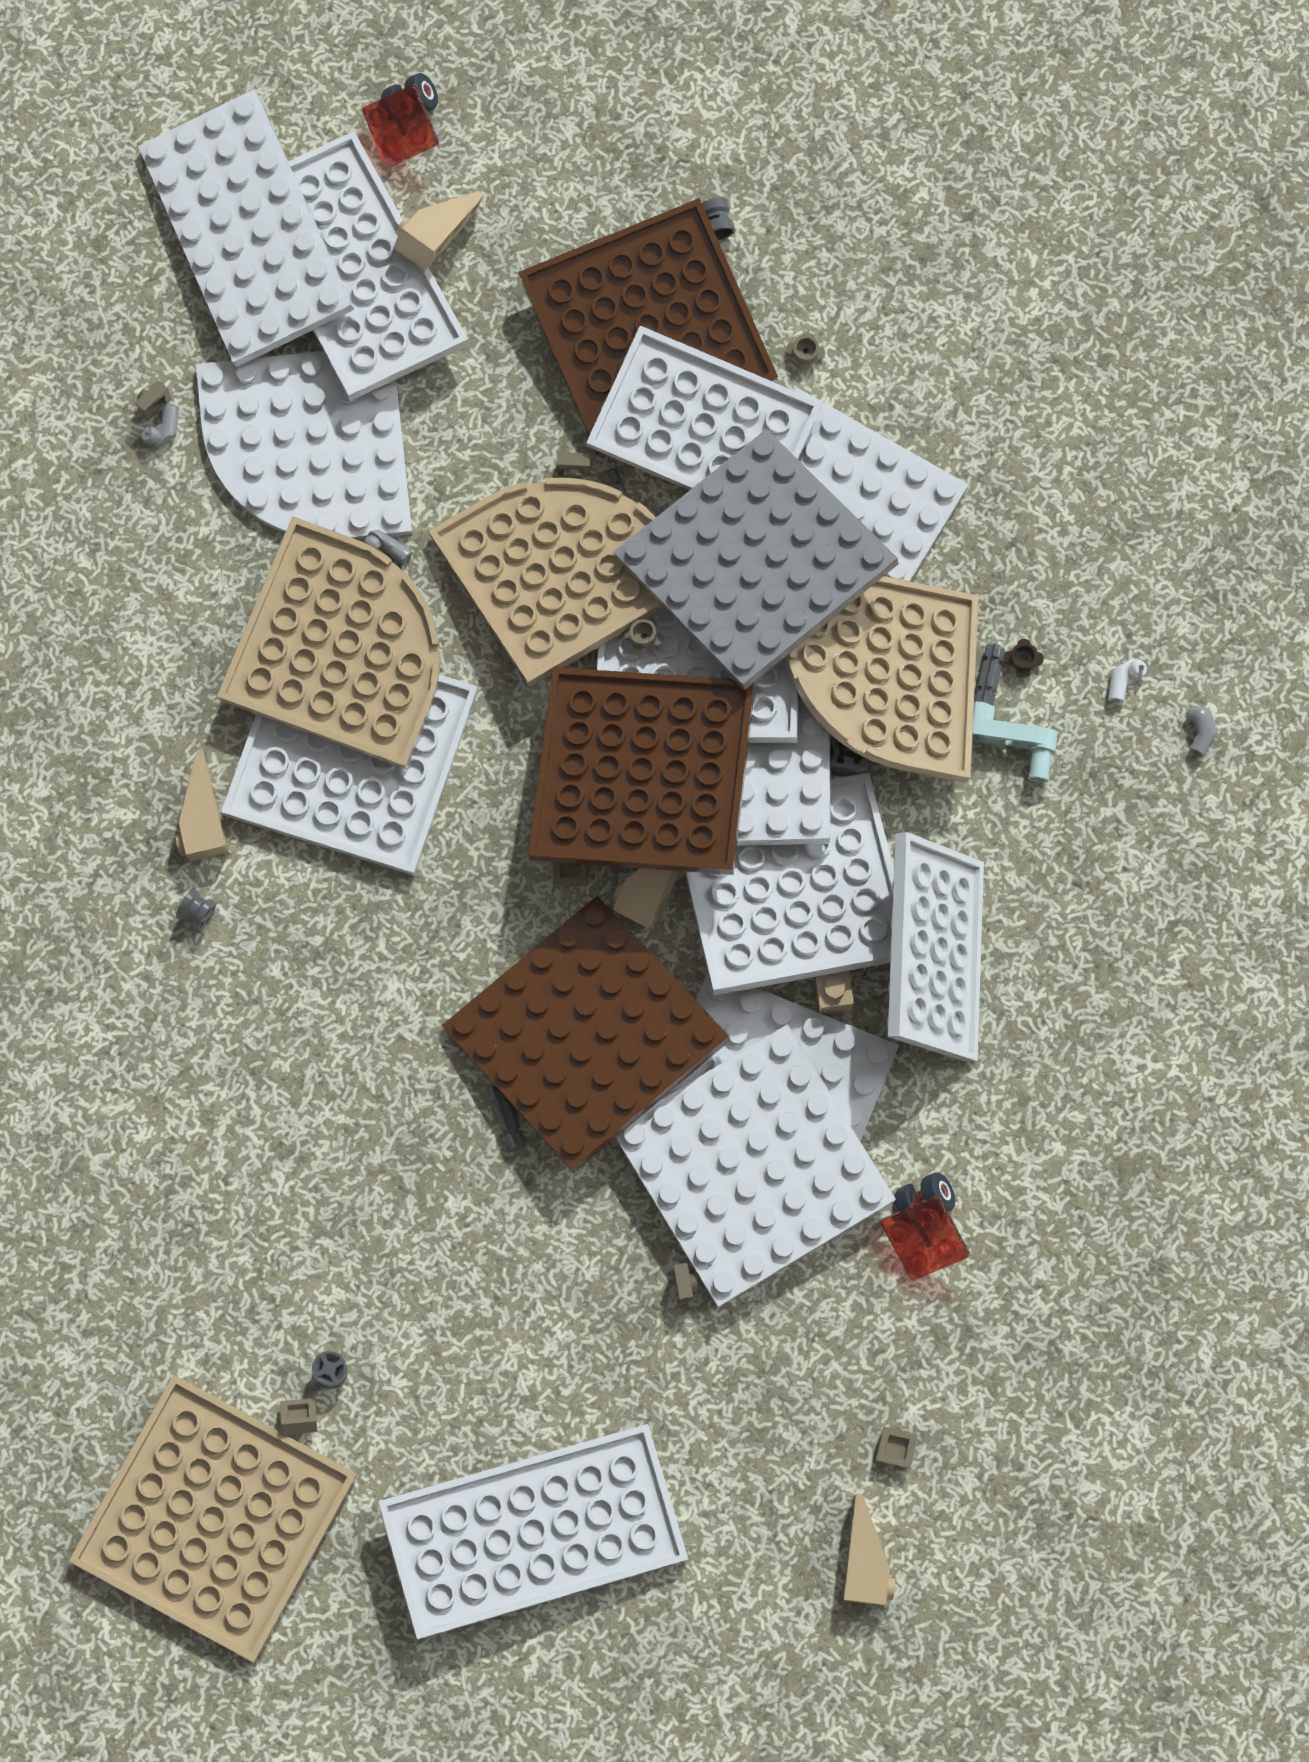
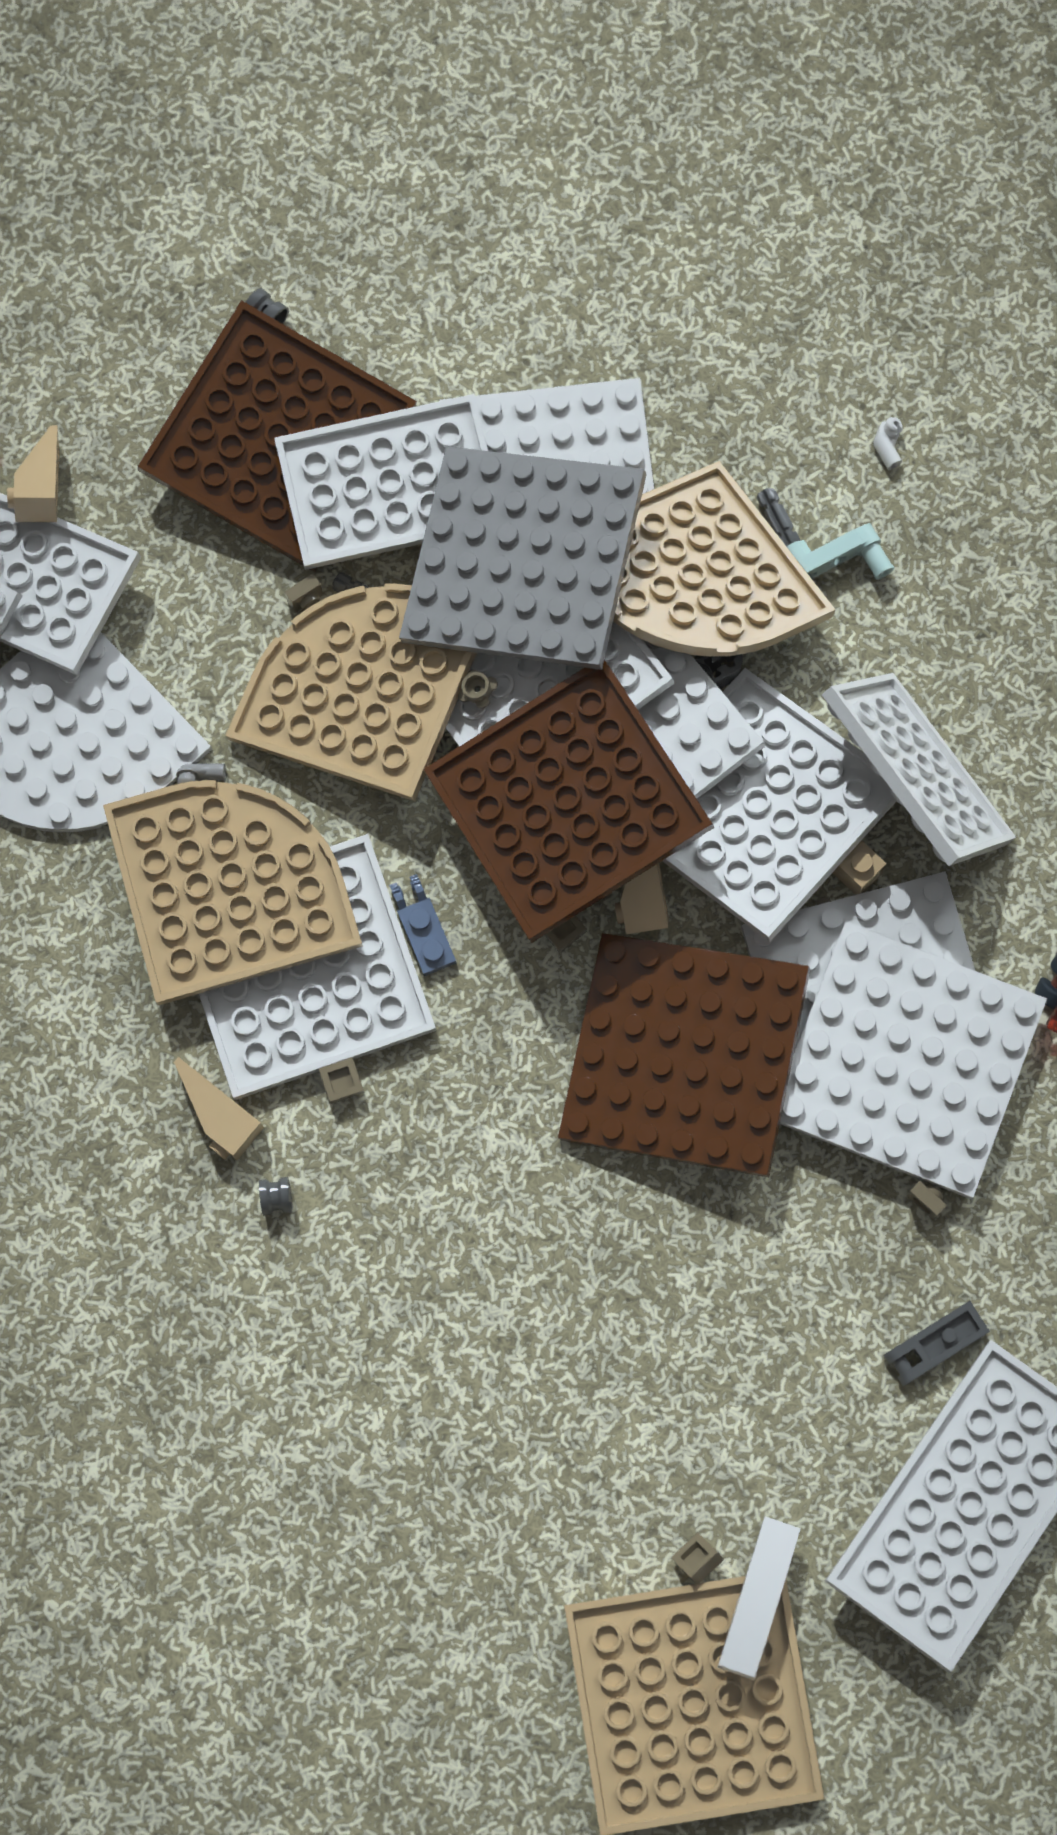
camera: 30 degrees left, 0 degrees up
(312, 860) = (341, 1080): none -> dark tan plate
(319, 1477) = (759, 1598): none -> white slope
(325, 1365) = (693, 1493): dark grey wheel -> none
(464, 791) = (423, 929): none -> sand blue hinge
(507, 1119) = (673, 1175): dark grey axle -> none
(606, 1396) = (938, 1342): none -> dark grey plate
(803, 342) = (422, 356): dark tan plate -> none
(1023, 648) = (797, 476): dark brown plate -> none
(1205, 727) = (984, 435): light grey arm -> none

